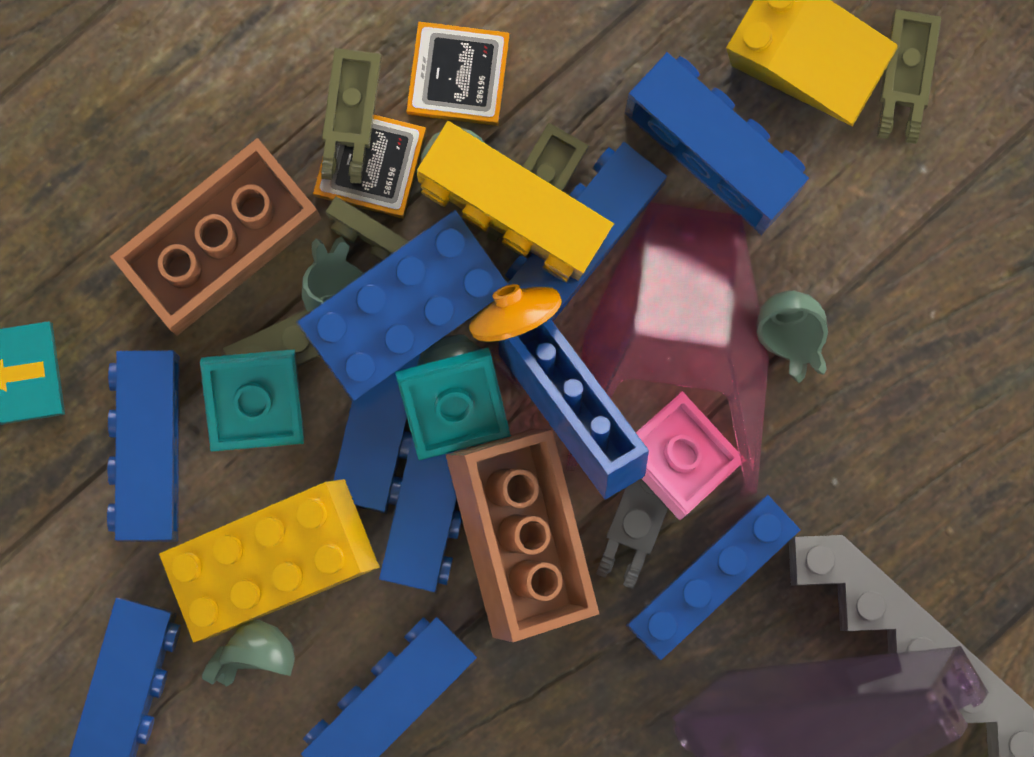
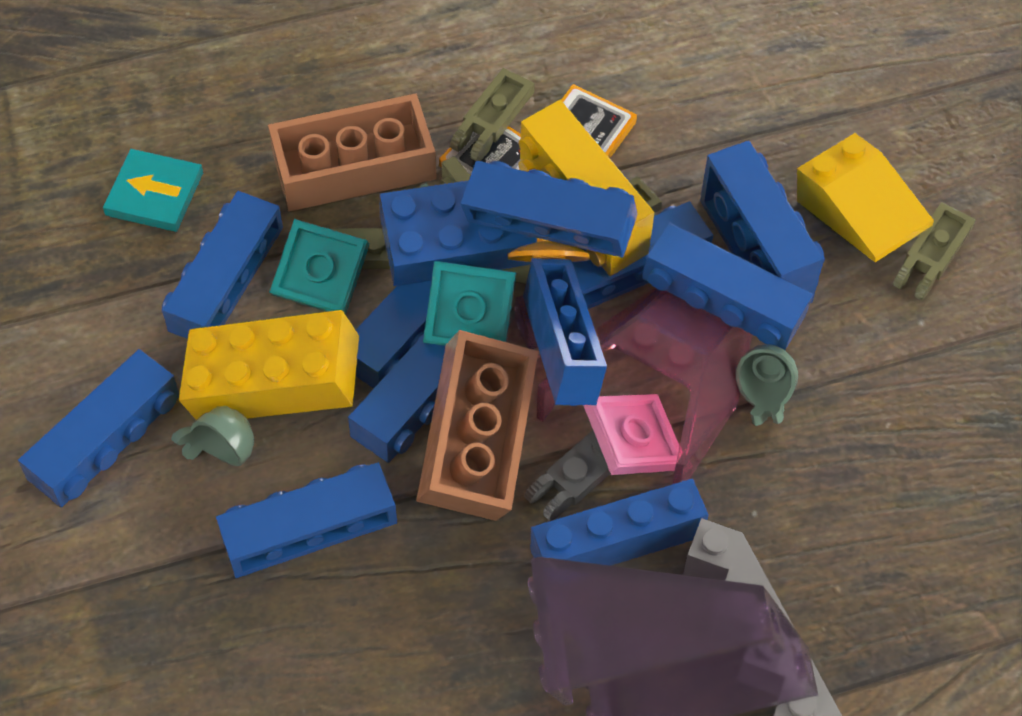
camera: 25 degrees right, 25 degrees down
(501, 277) = (550, 207): none -> blue brick
(713, 248) = (726, 286): none -> blue brick

